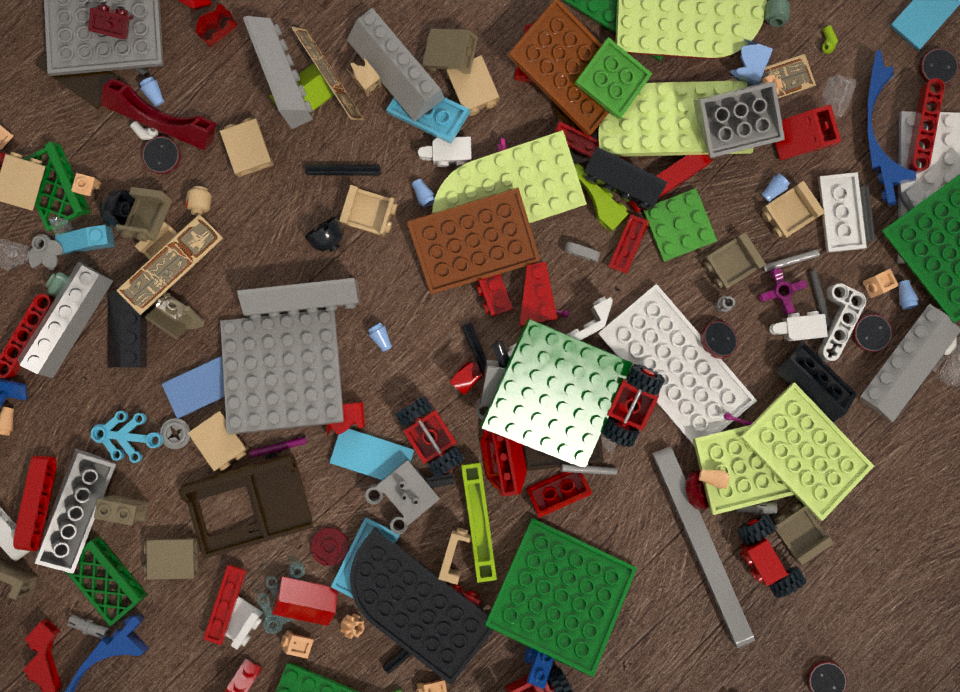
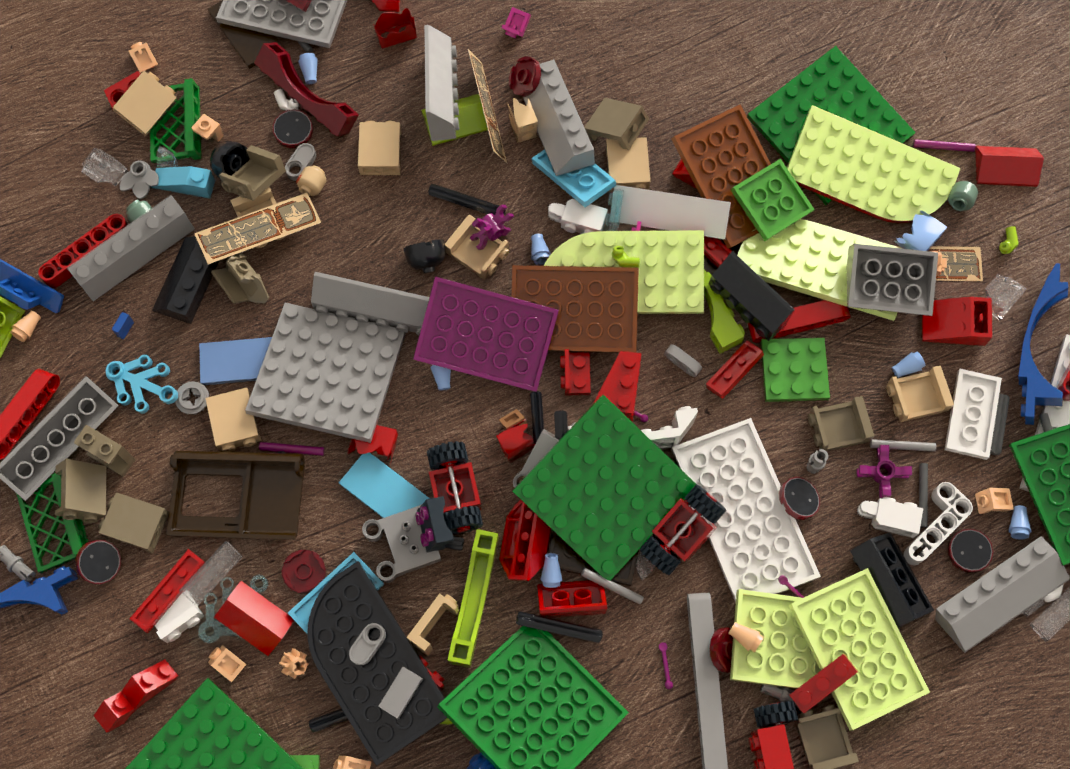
camera: 15 degrees right, 15 degrees down
(88, 392) = (122, 325): none -> blue tile
(117, 551) = (82, 490): none -> dark tan panel
(156, 602) = (98, 561): none -> black tile
(181, 179) = (302, 157): none -> light grey piece
(254, 577) = (211, 573): none -> clear plate
(351, 32) = (525, 76): none -> dark red tile
(374, 190) = (491, 227): none -> magenta pin
(406, 292) = (485, 334): none -> magenta plate
(406, 598) = (363, 648): none -> light grey piece
(422, 474) = (433, 526): none -> black brick
(449, 623) = (400, 692): none -> light grey tile
(456, 358) = (512, 419): none -> medium nougat plate
(478, 142) = (615, 201): none -> clear light blue plate
(501, 182) = (623, 260): none -> lime arm
(526, 120) = (674, 211): none -> white sticker
(535, 477) = (551, 571): none -> light blue cone
(557, 519) = (559, 627): none -> black axle
(646, 503) = (663, 647): none -> magenta hinge
(788, 492) = (823, 683): none -> red plate

